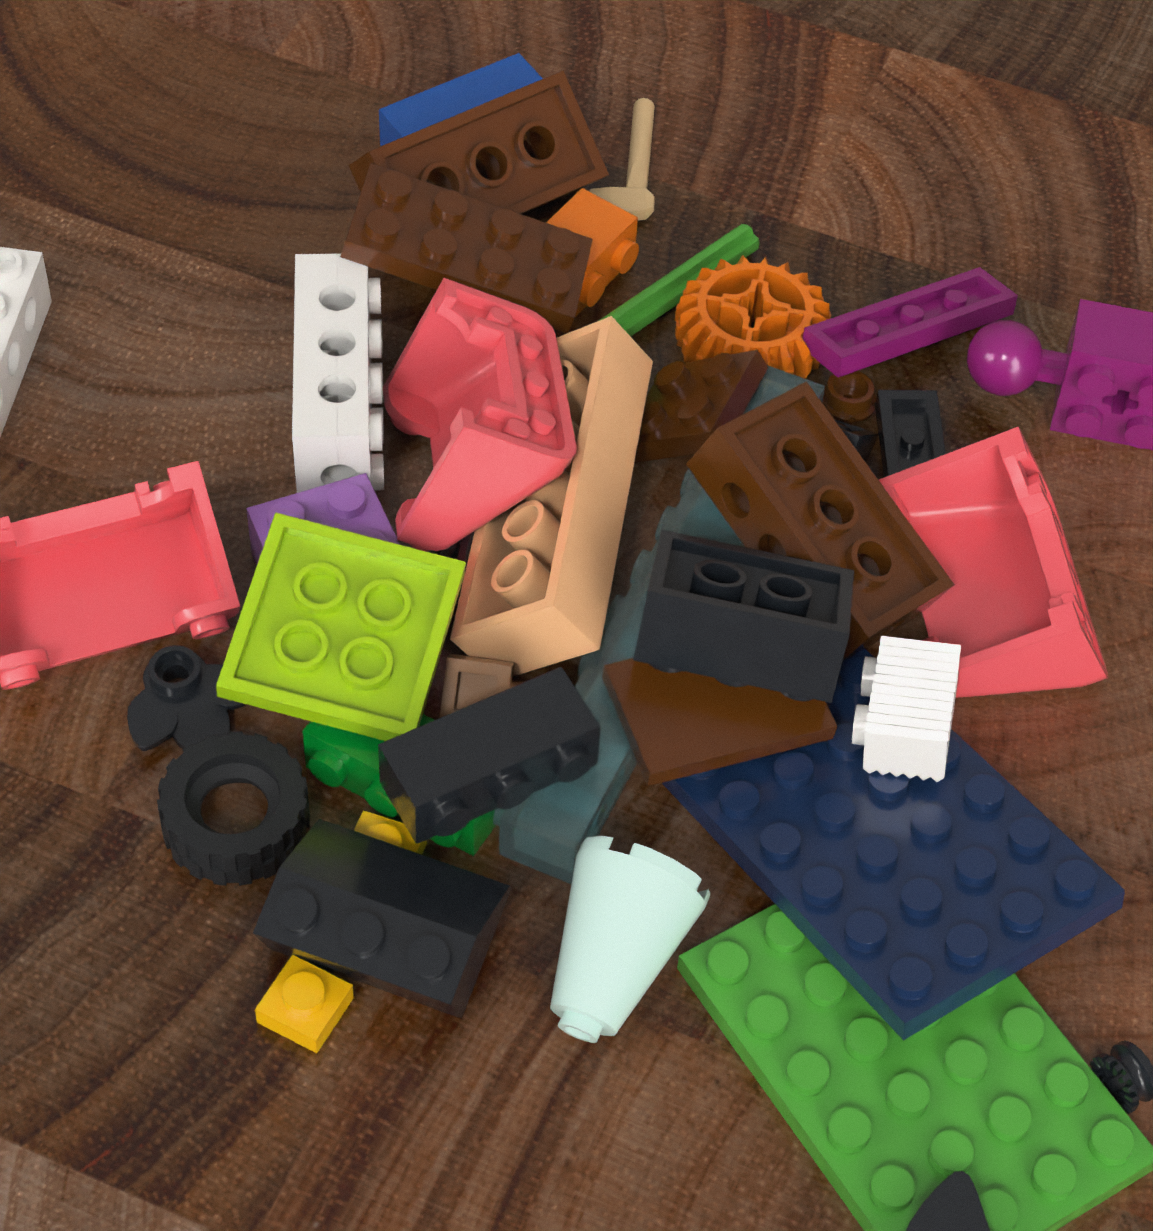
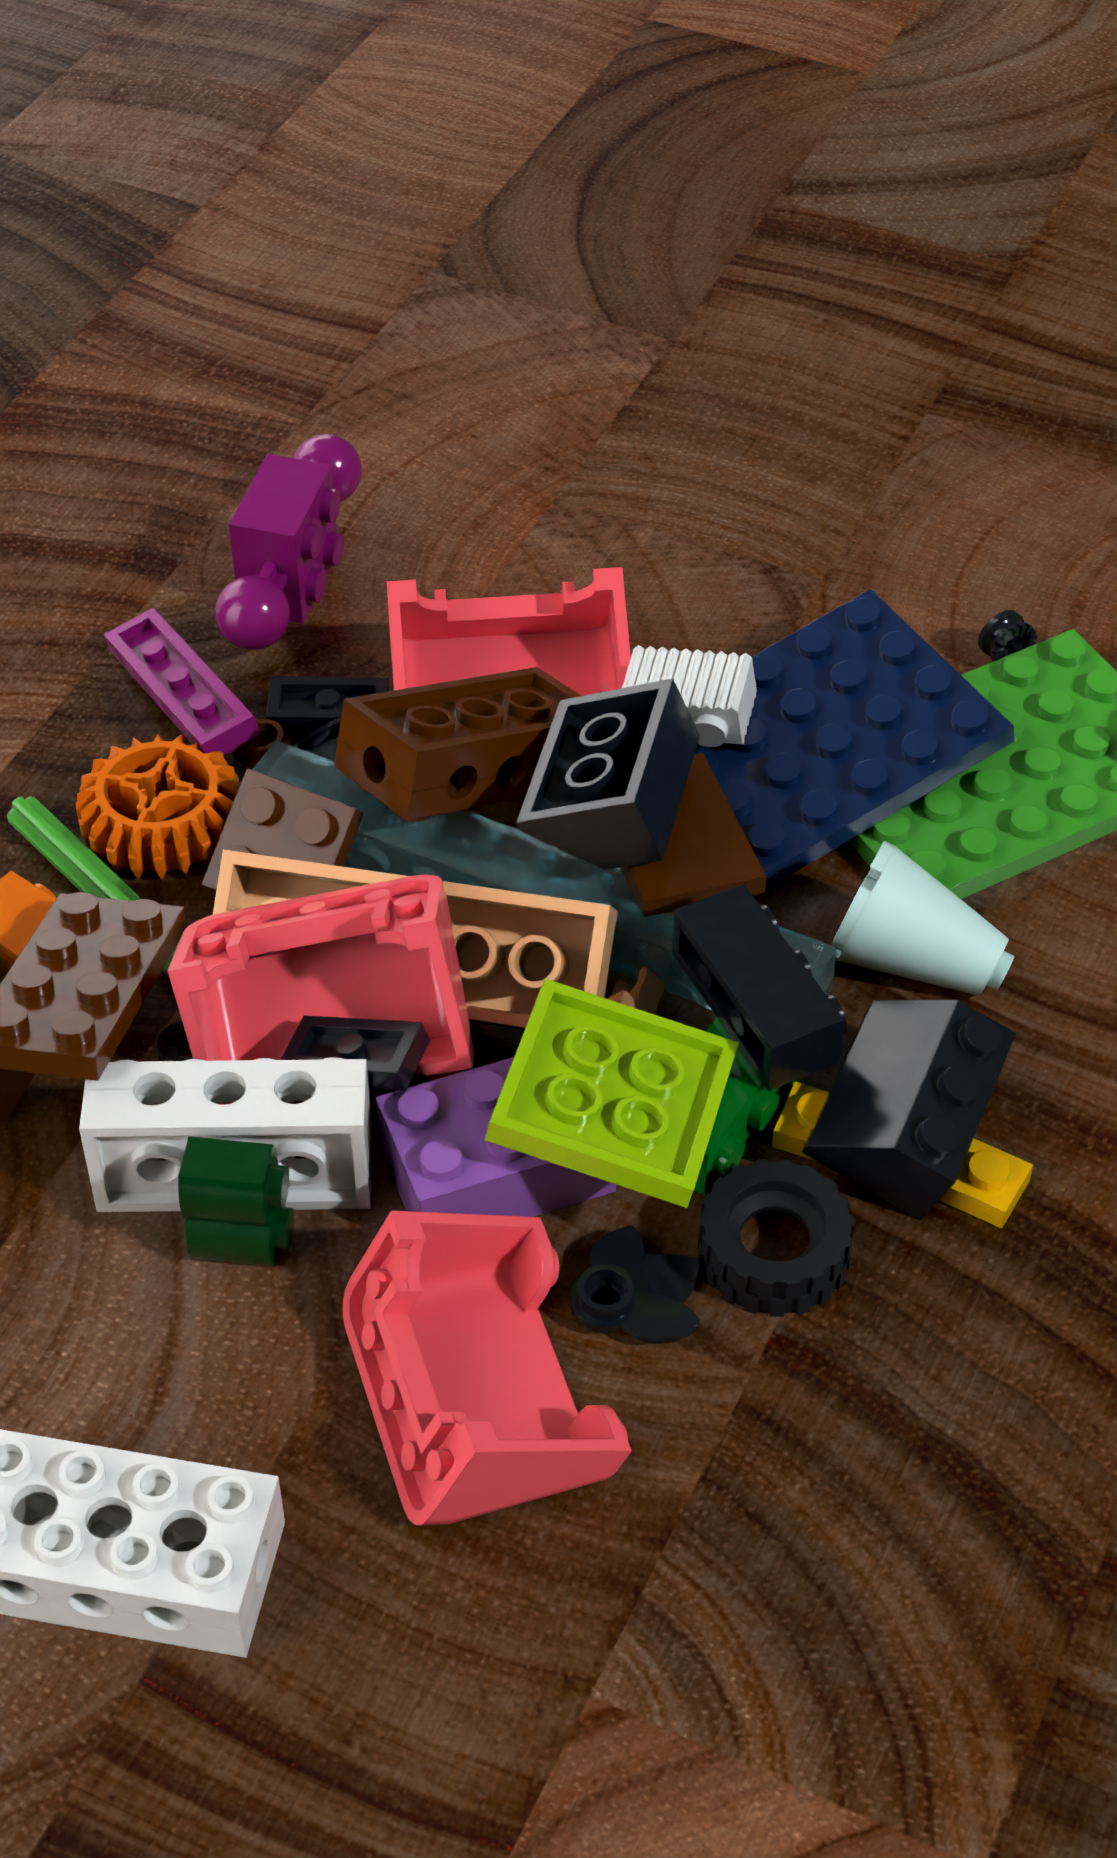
camera: 85 degrees left, 5 degrees down
(260, 388) = (234, 1201): none -> dark green brick
(408, 453) = (388, 1046): none -> black plate

